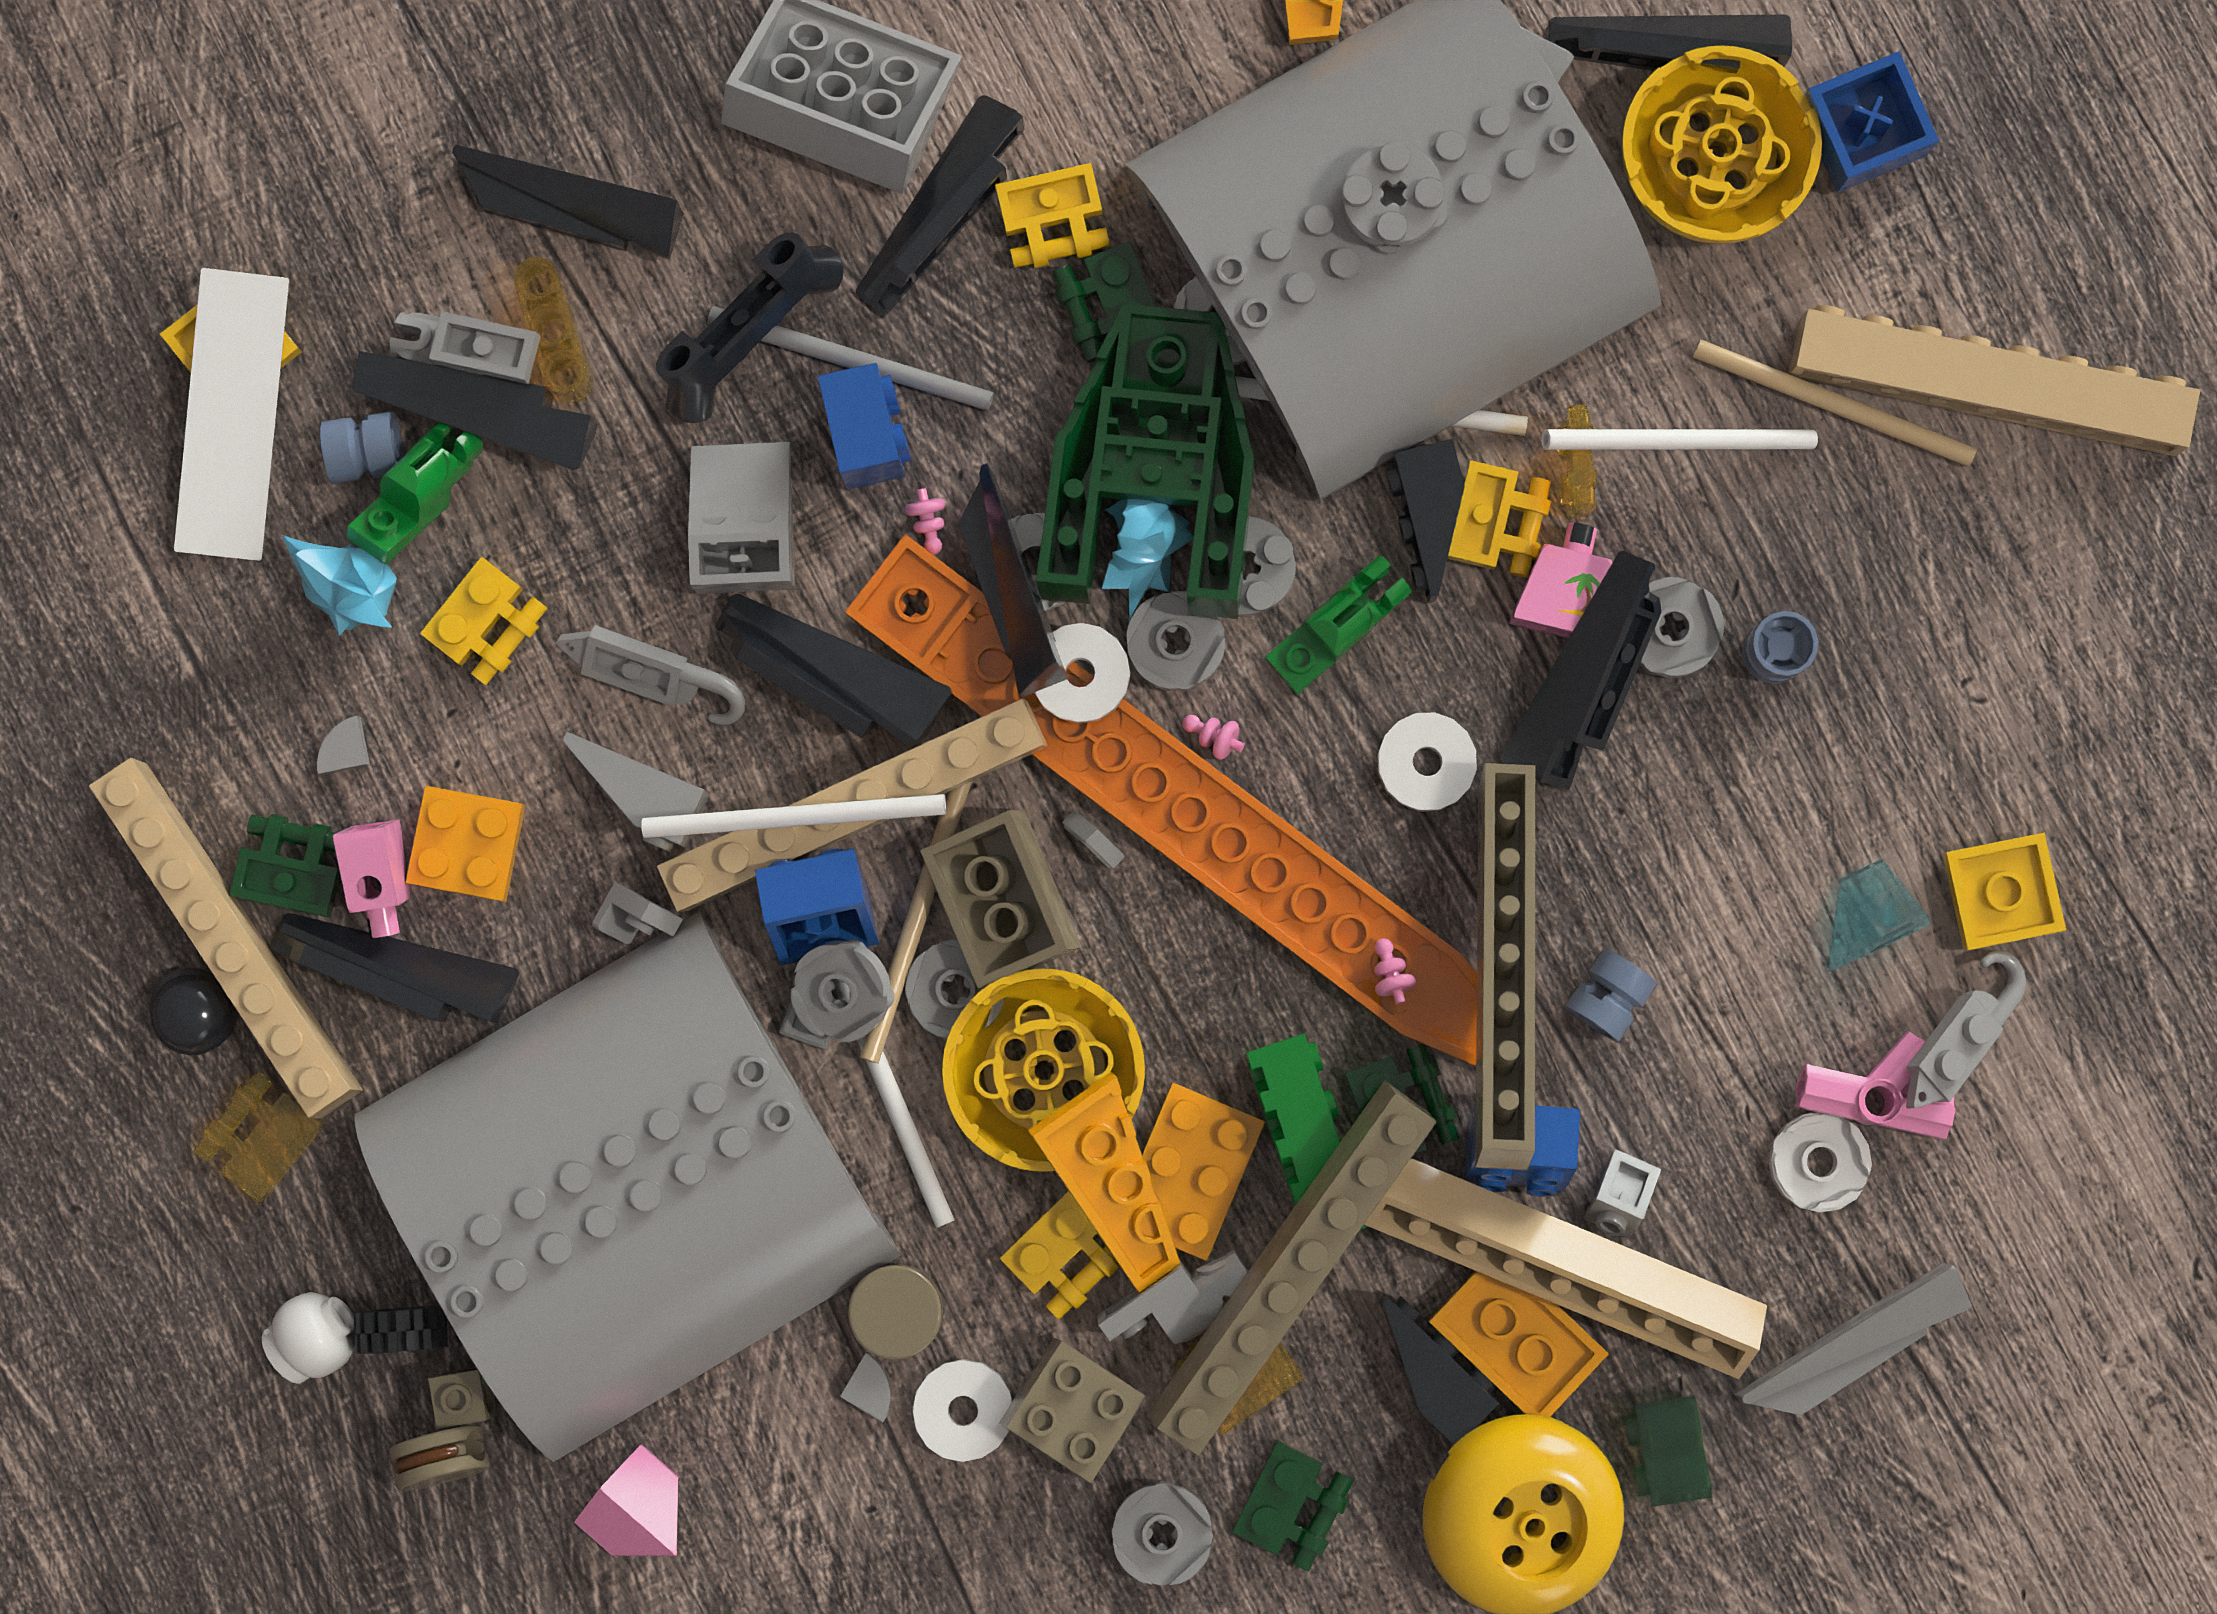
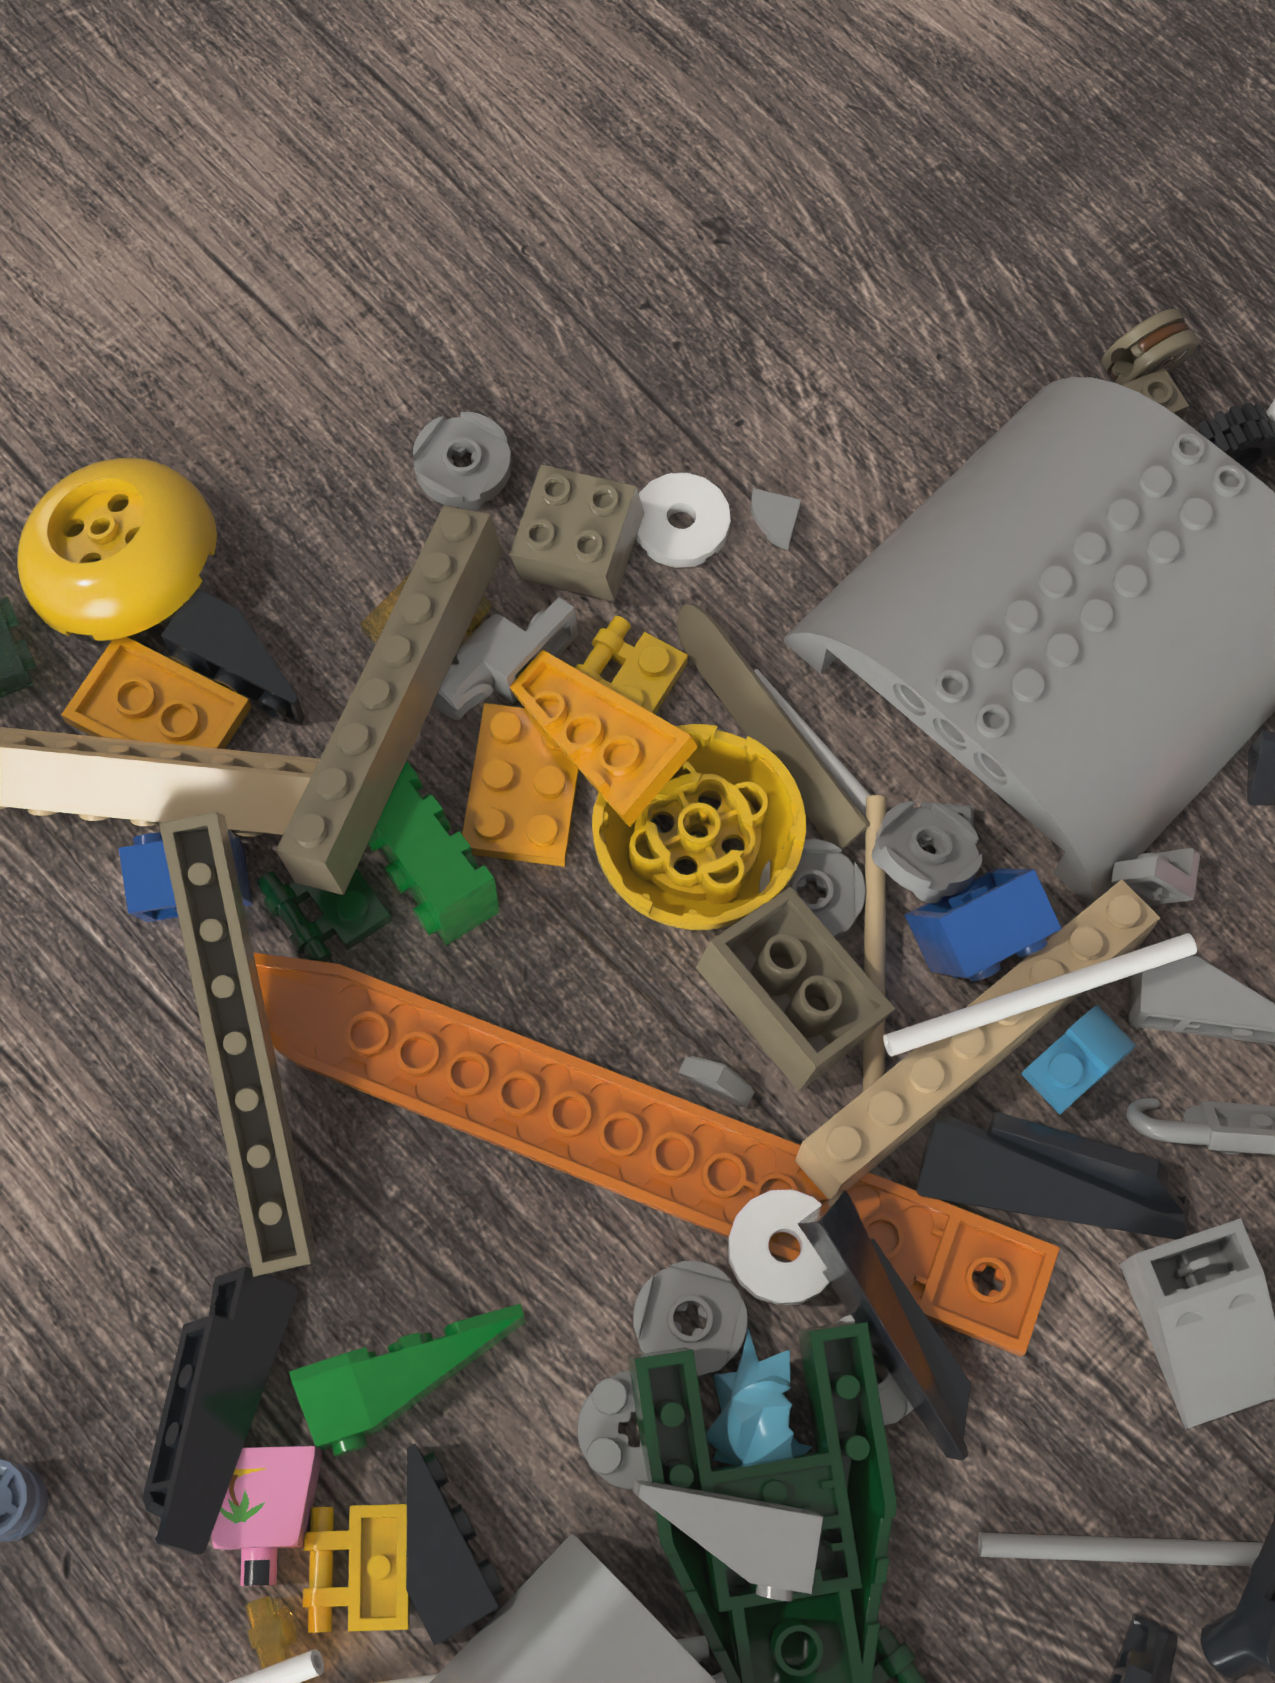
camera: 155 degrees right, 15 degrees down
(635, 1509) = (953, 367): bright pink slope -> none
(767, 765) = (1078, 1059): none -> dark azure brick
(861, 425) = (1117, 1462): blue brick -> none
(895, 1311) = (772, 583): dark tan head -> none
(928, 523) = (1002, 1377): bright pink hair -> none
(946, 1166) = (767, 723): none -> dark tan piece
(1182, 439) = (754, 1538): none -> light grey slope
(1211, 732) = (623, 1230): bright pink hair -> none
(1278, 1497) = (359, 521): dark green plate -> none
(1335, 627) = (515, 1384): green plate -> none
(1390, 968) = (366, 1021): bright pink hair -> none
(1434, 733) = (355, 1239): white tile -> none
(1459, 653) = (366, 1392): none -> green wedge
(1611, 995) = (122, 1080): sand blue wheel -> none
(1622, 1195) = (74, 870): light grey bracket -> none
(1696, 642) = (97, 1487): light grey plate -> none

